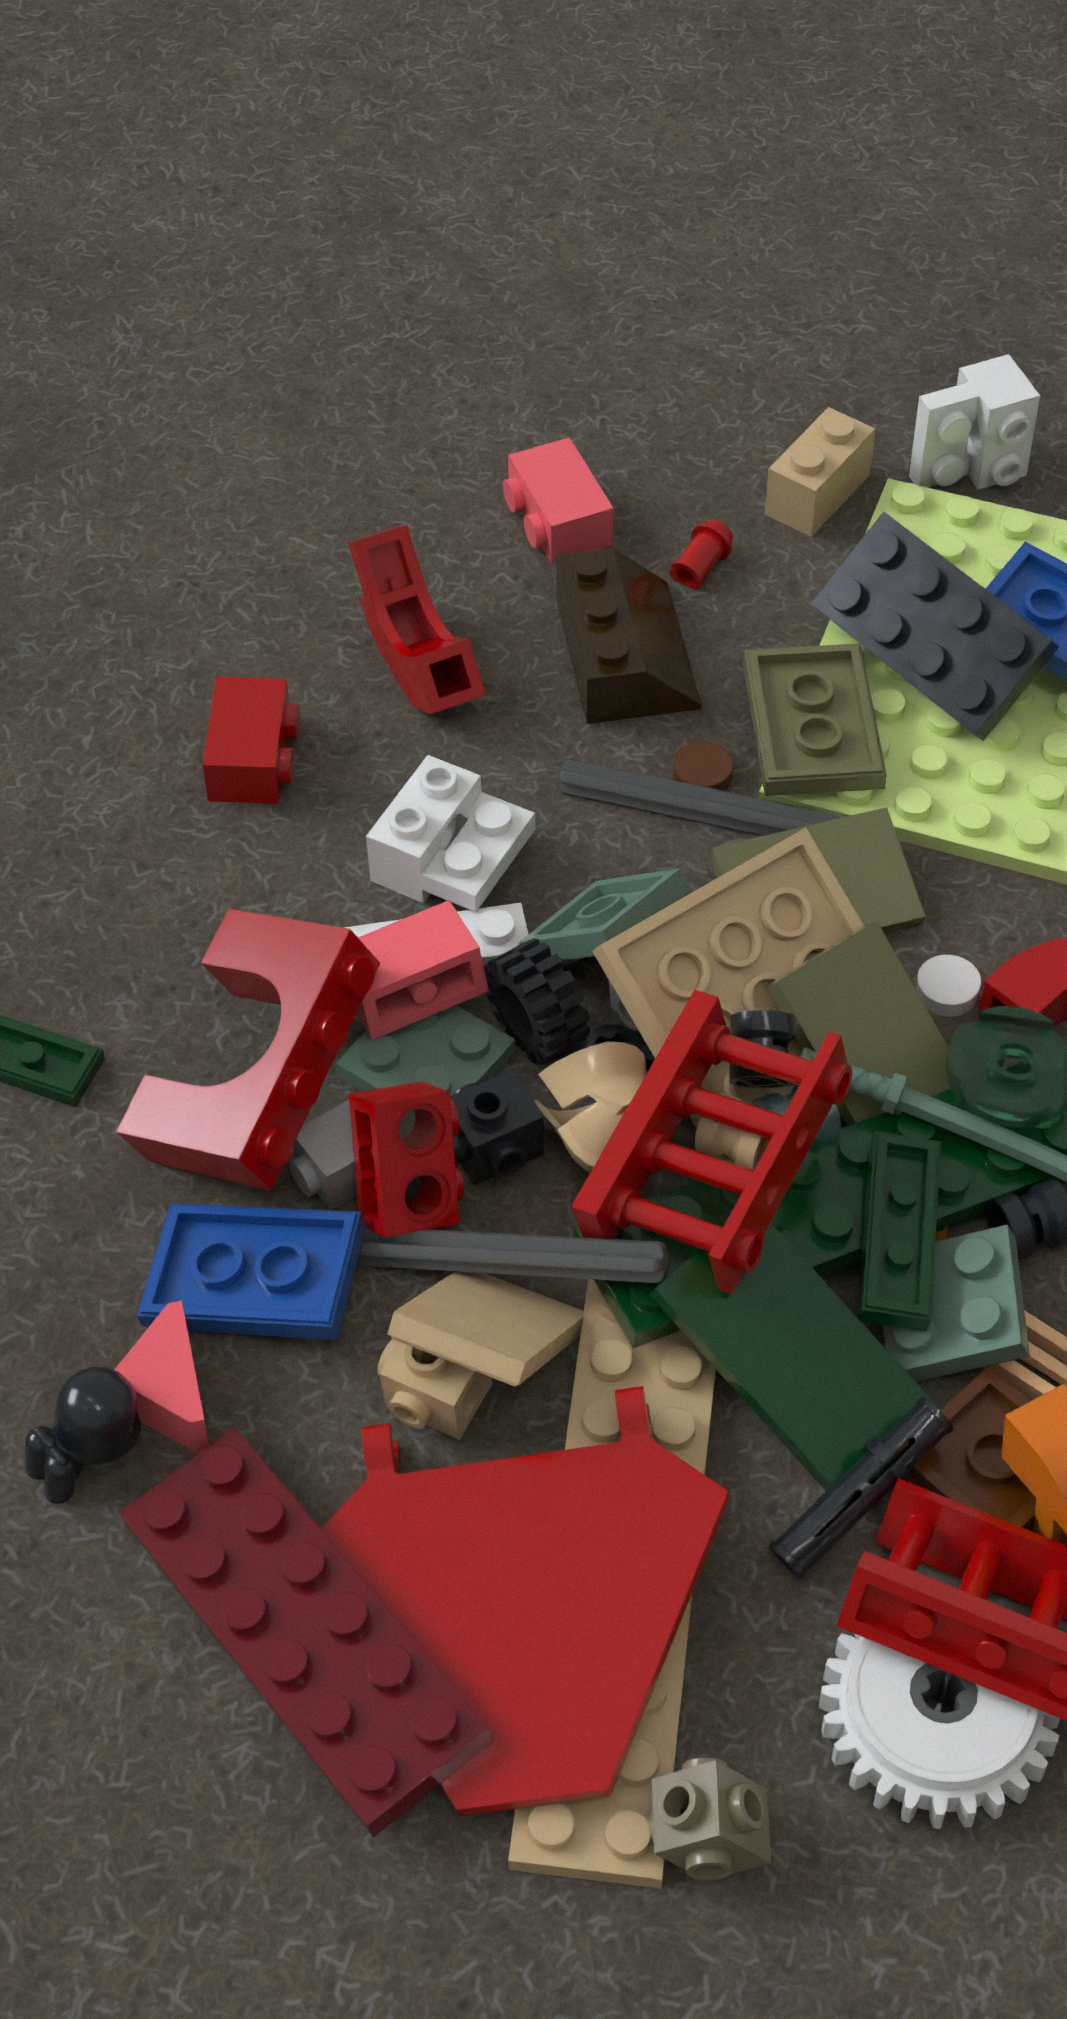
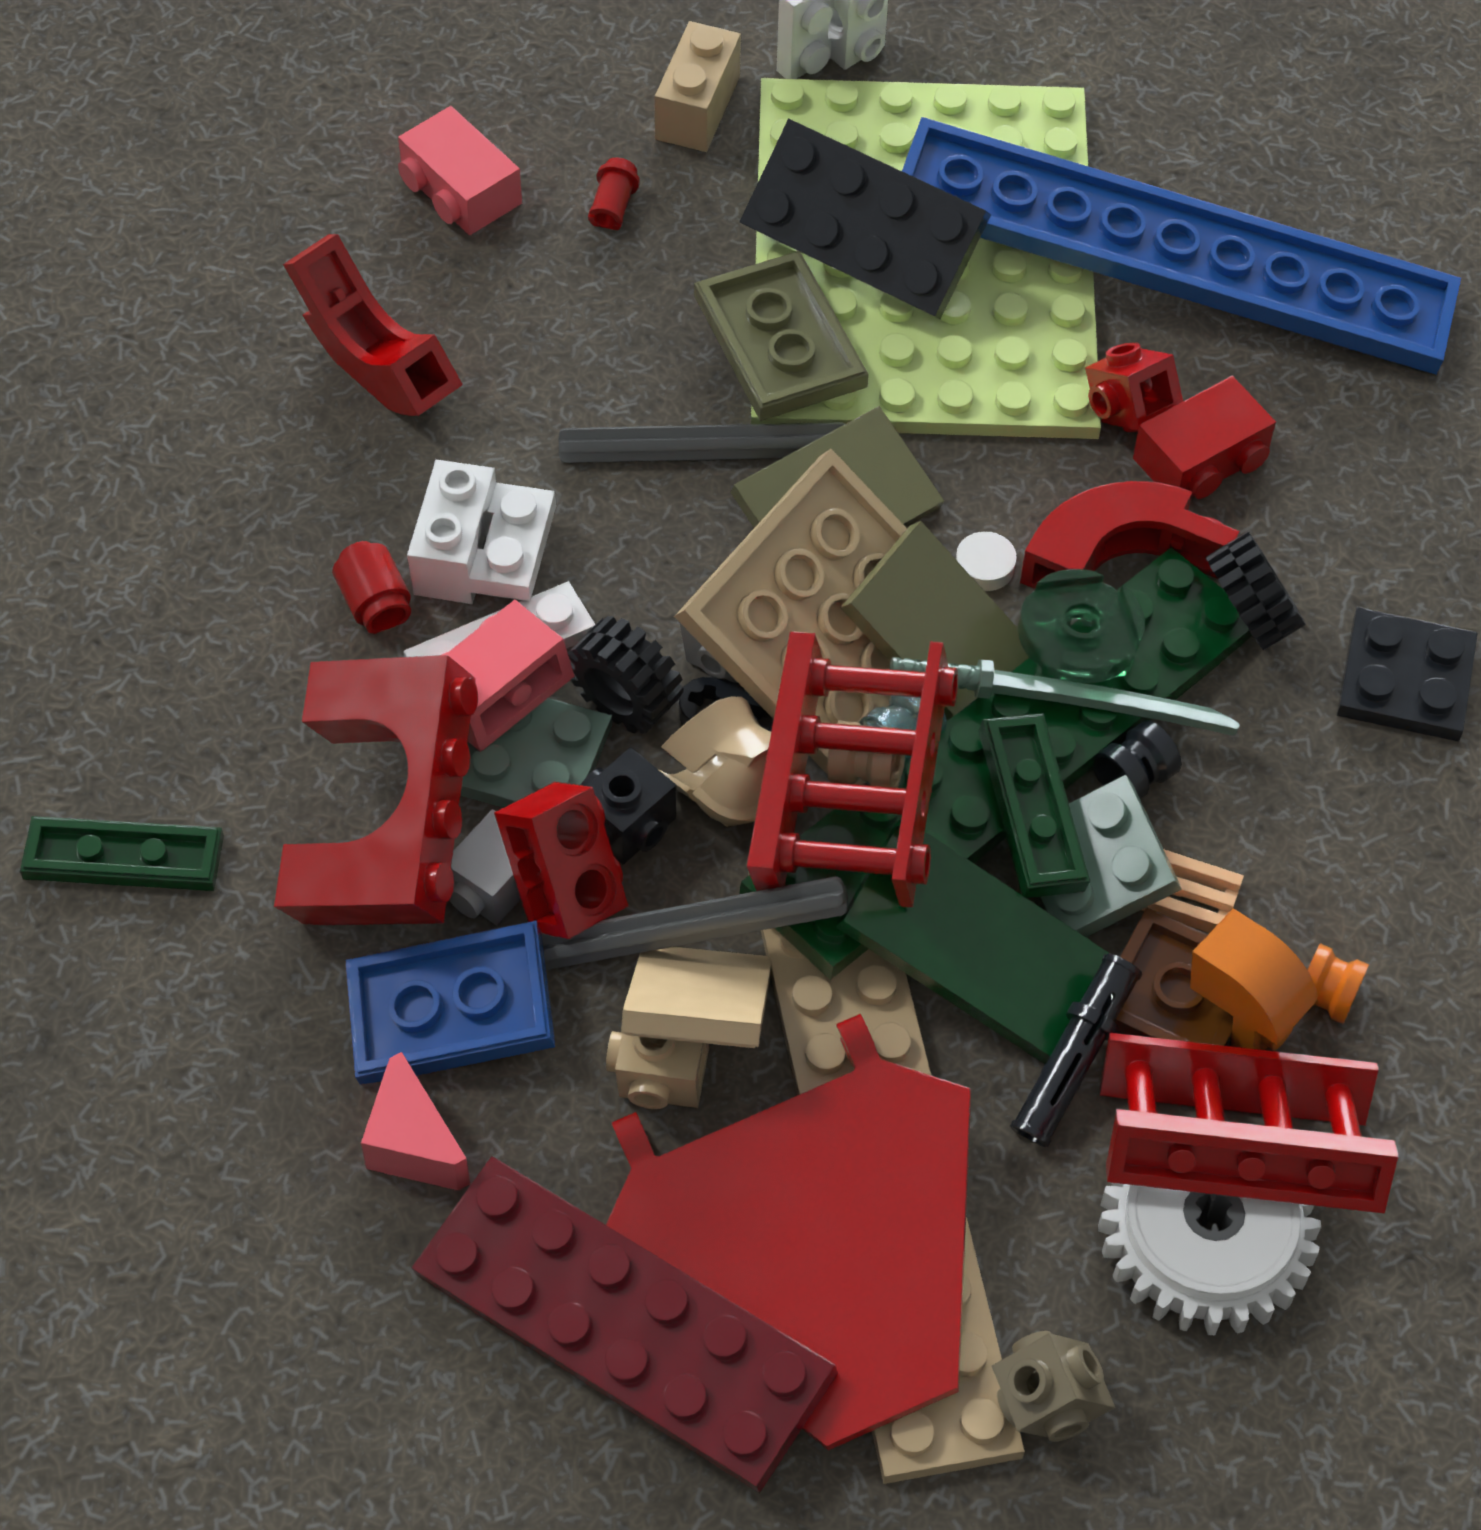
camera: 20 degrees left, 5 degrees up
(92, 1426) = (358, 1194): black piece -> none
(248, 740) = (248, 484): red brick -> none
(330, 861) = (372, 586): none -> red brick
(606, 911) = (661, 573): sand green plate -> none
(622, 638) = (567, 296): dark brown slope -> none
(703, 765) = (689, 404): reddish brown tile -> none
(766, 1028) = (854, 650): black wheel -> none

